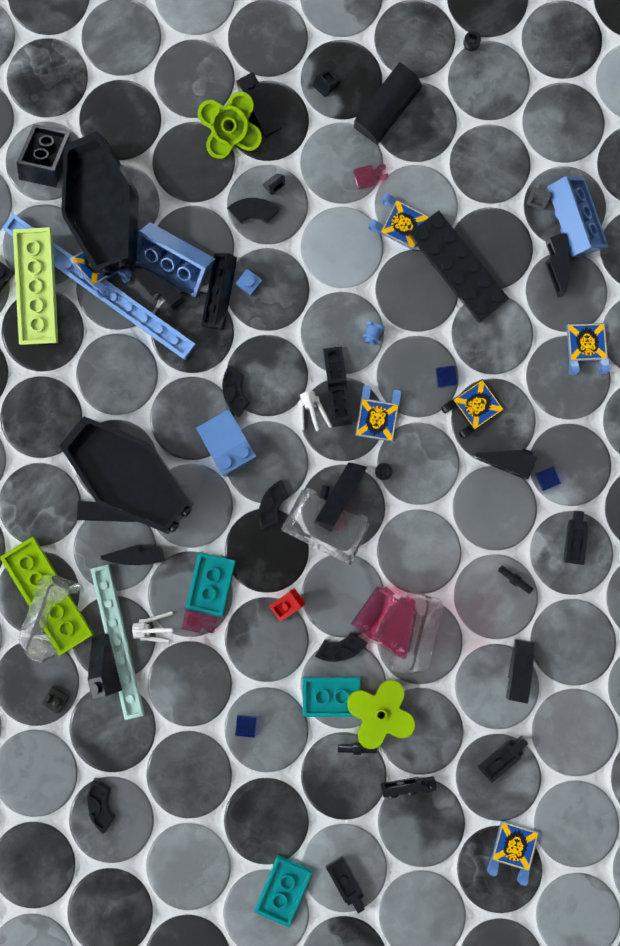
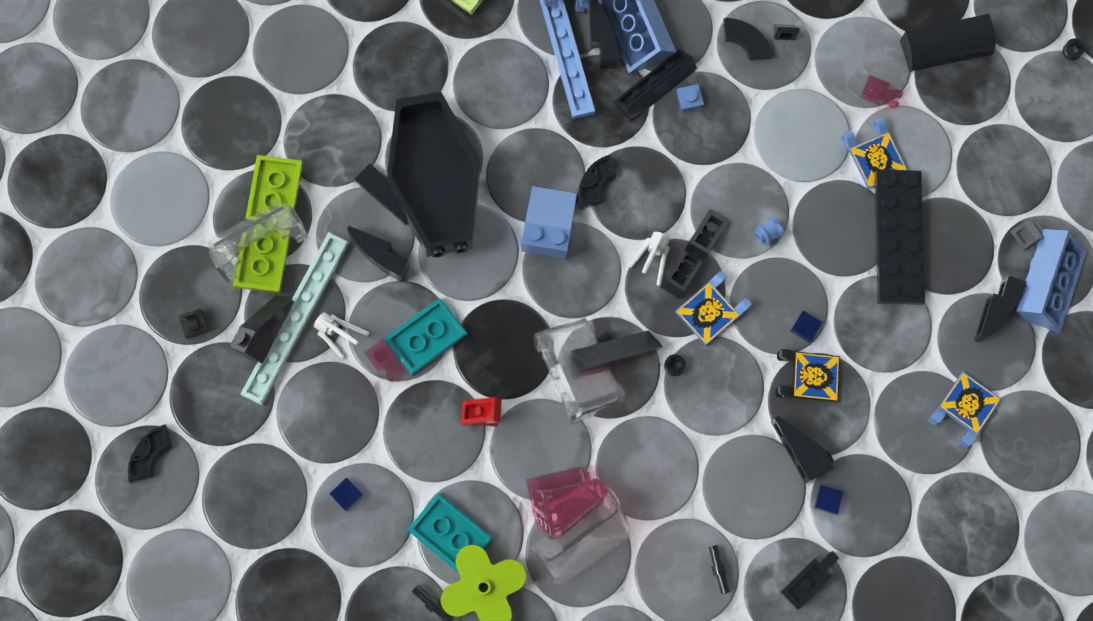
camera: 30 degrees right, 10 degrees down
(270, 505) = (542, 310): black tile -> none
(342, 649) = (495, 497): black tile -> none

